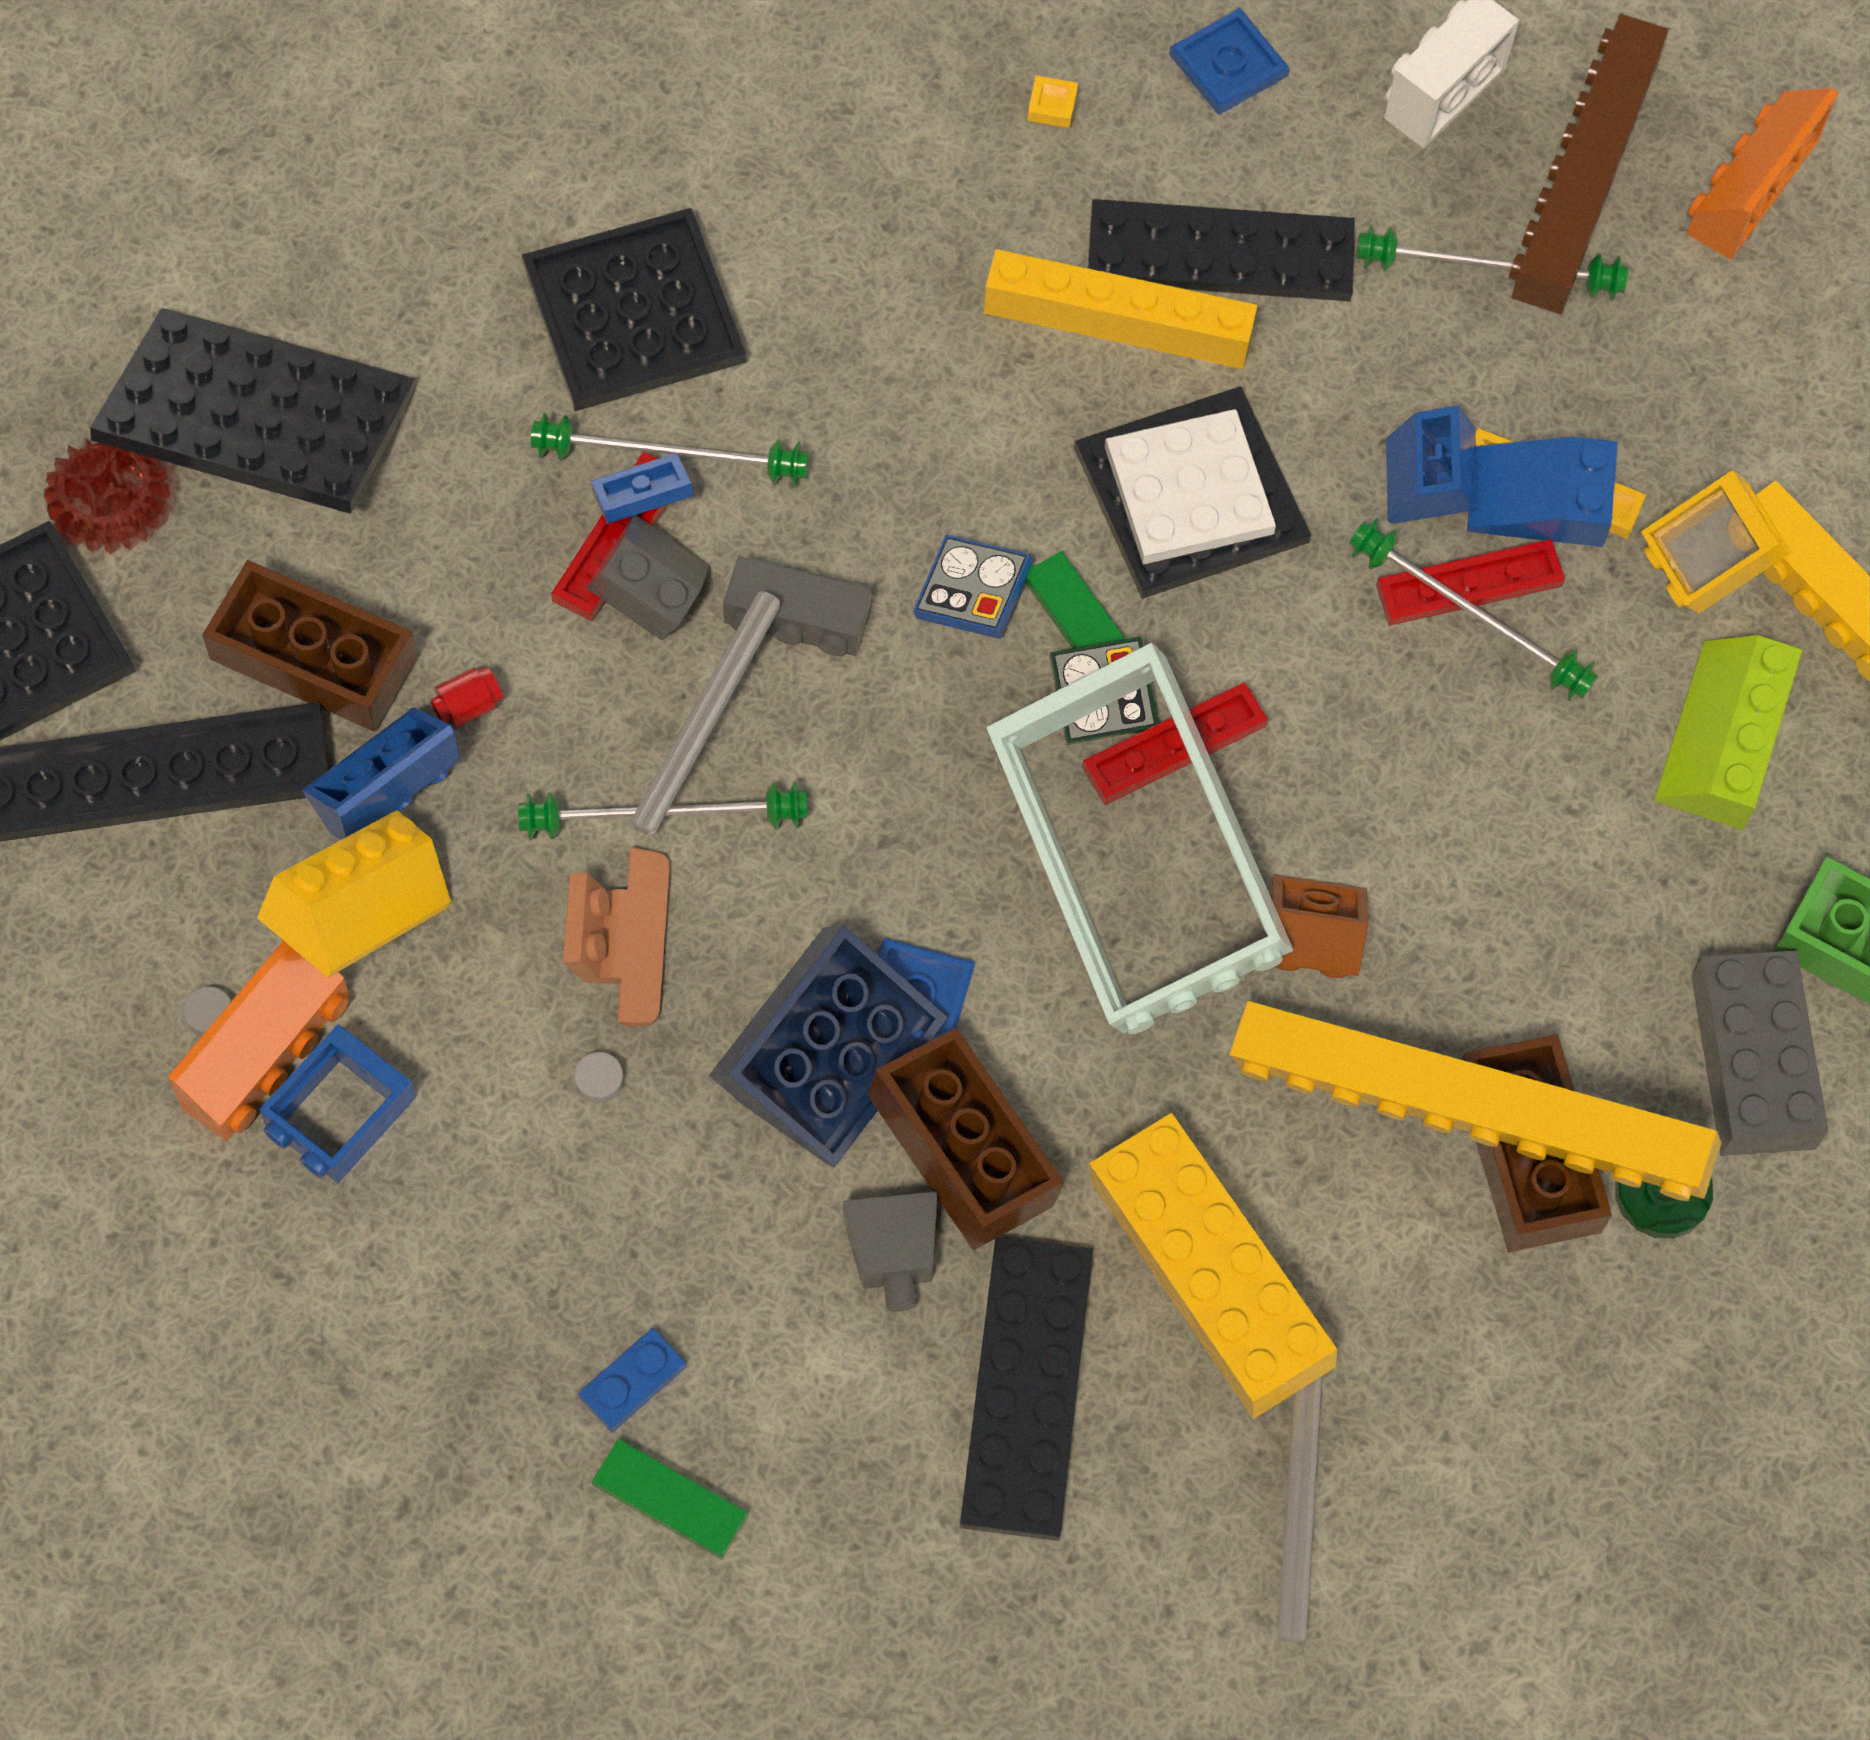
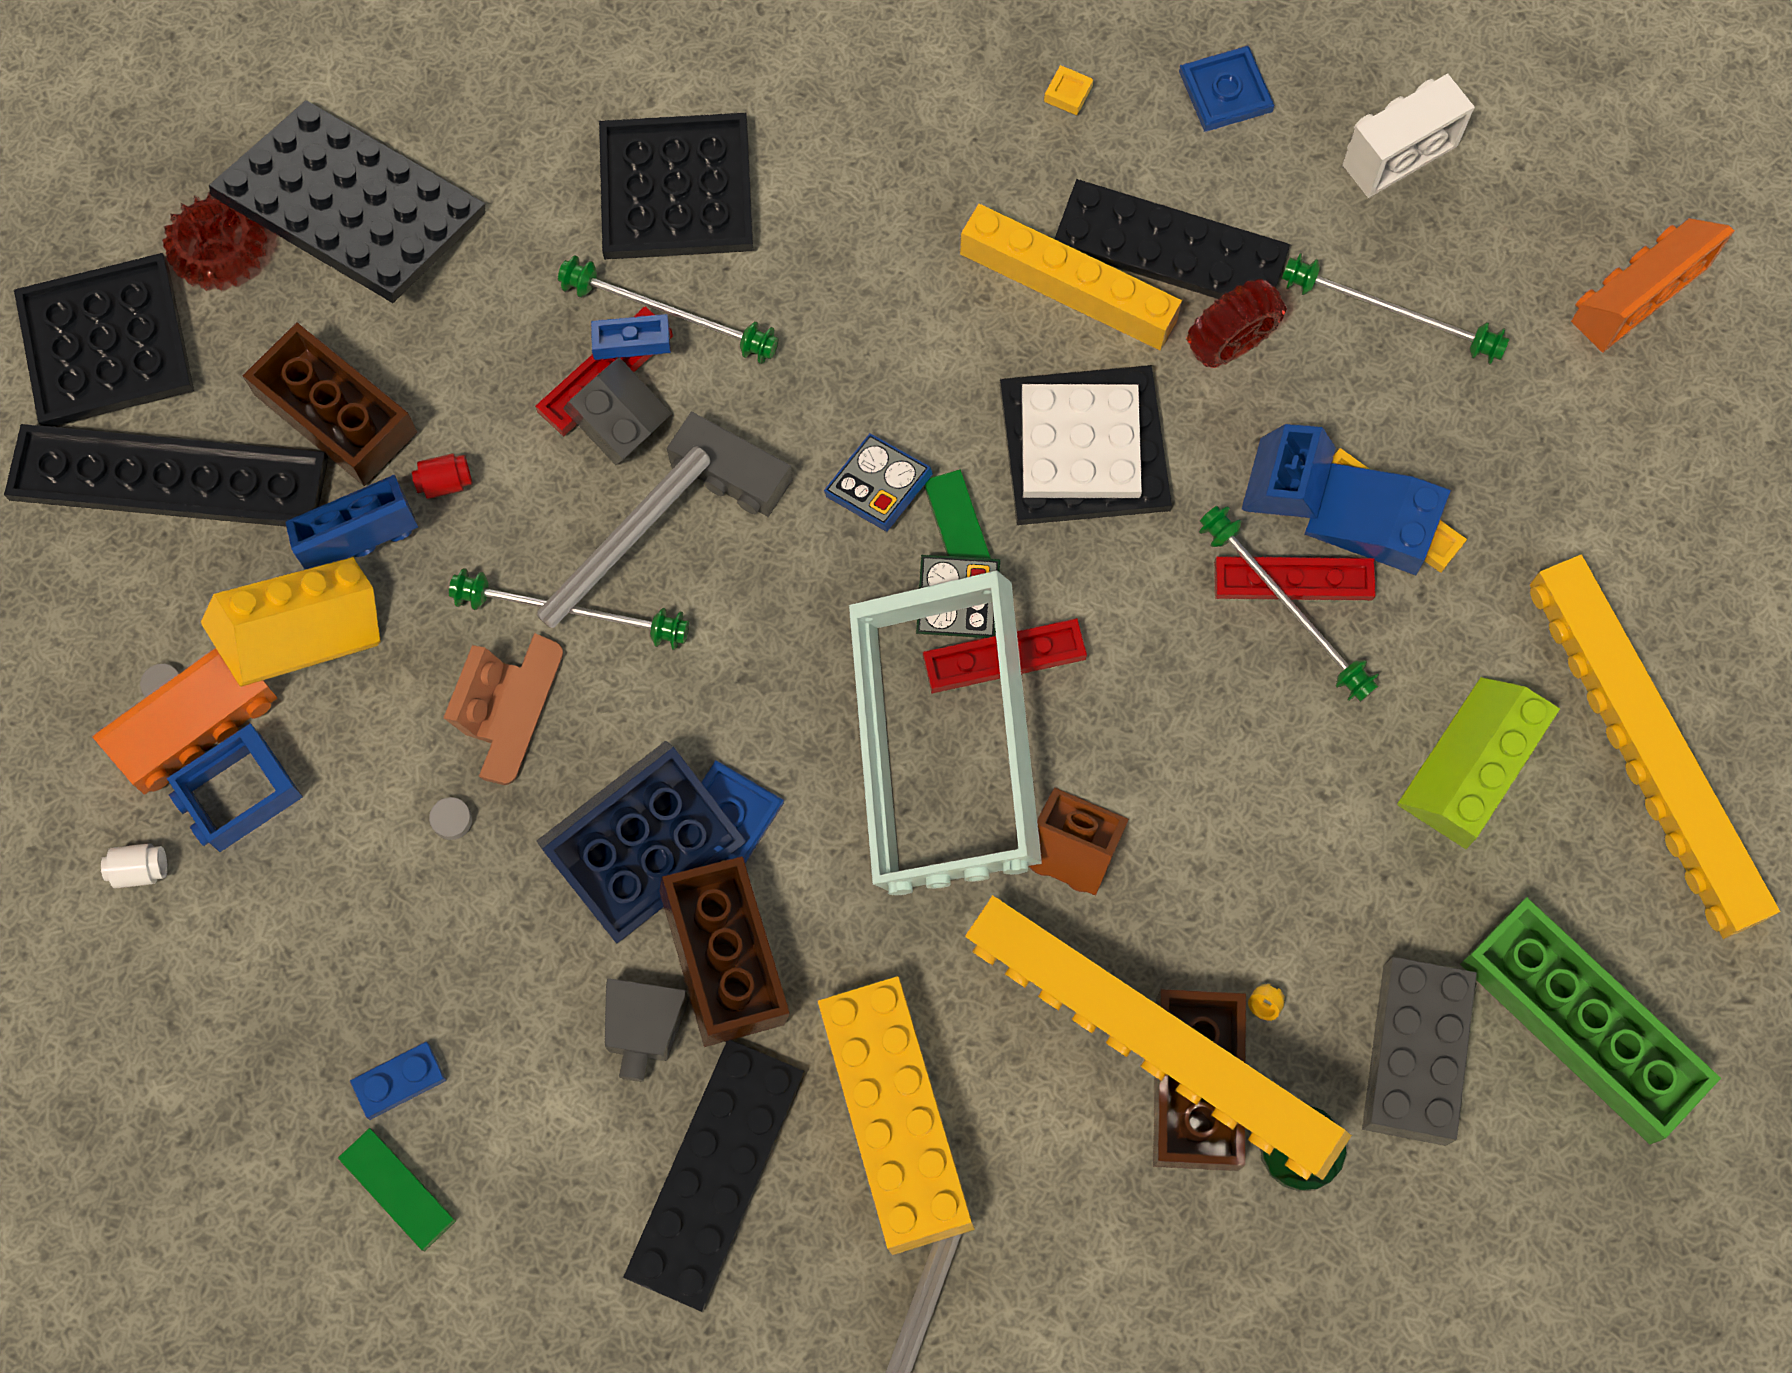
camera: 20 degrees right, 5 degrees up
(246, 1220) = (134, 865): none -> white brick
(1324, 317) = (1236, 323): none -> clear red gear
(1578, 1056) = (1260, 1008): none -> yellow hinge
(1589, 164) = (1502, 243): reddish brown brick -> none
(1714, 543) = (1511, 596): window -> none

